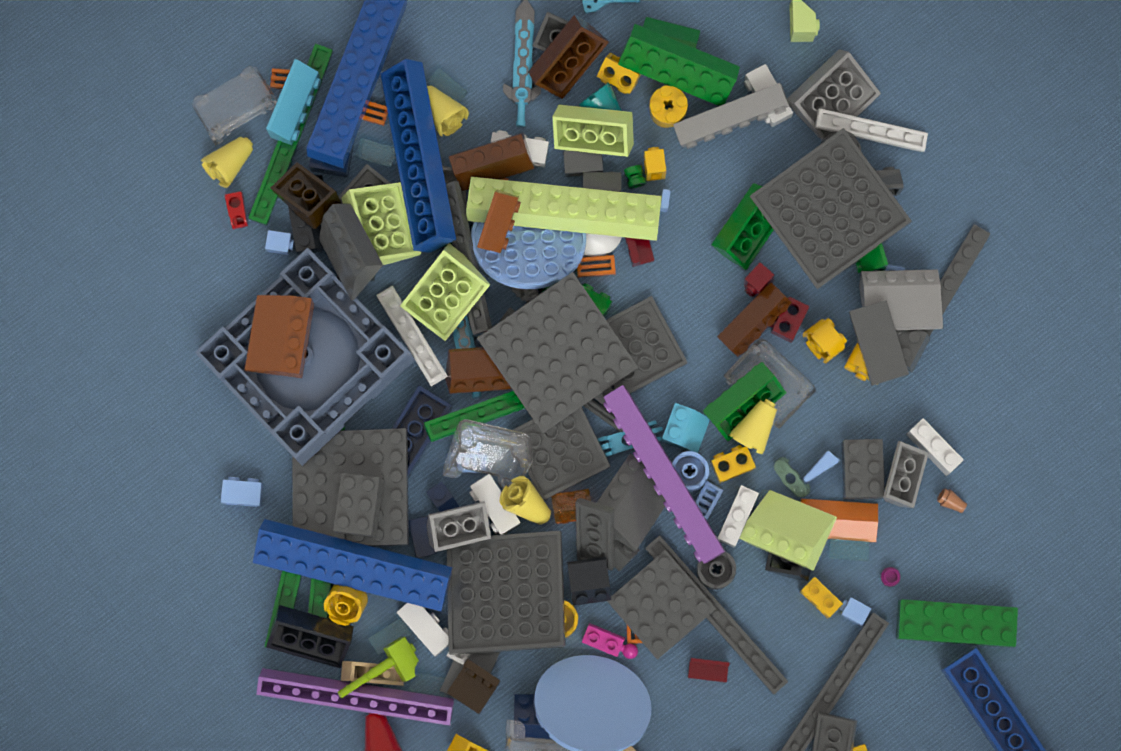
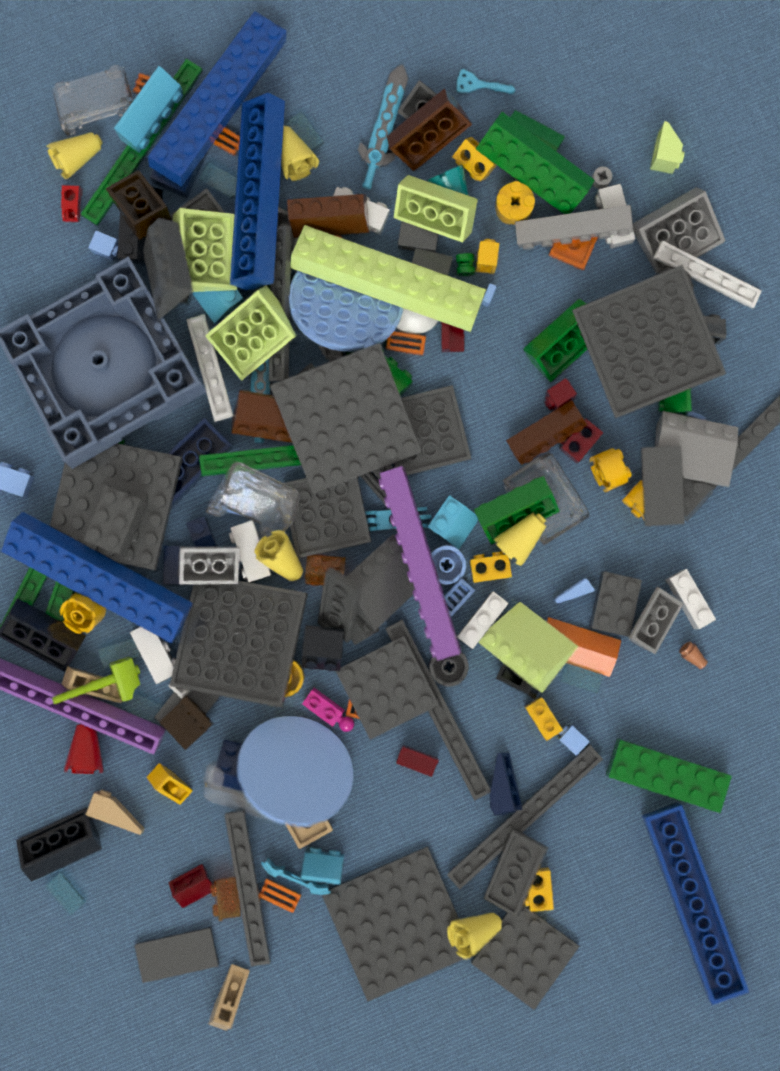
camera: 15 degrees right, 5 degrees up
(280, 335) = (79, 336): dark orange slope -> none
(405, 272) = (219, 303): none -> medium azure slope
(499, 221) = (318, 275): dark orange slope -> none
(737, 141) = (575, 253): none -> orange tile
(745, 65) = (601, 182): none -> light grey wheel
(782, 468) = (537, 584): sand green piece -> none
(800, 677) = (504, 789): none -> dark blue slope
(890, 576) = (615, 714): magenta plate -> none

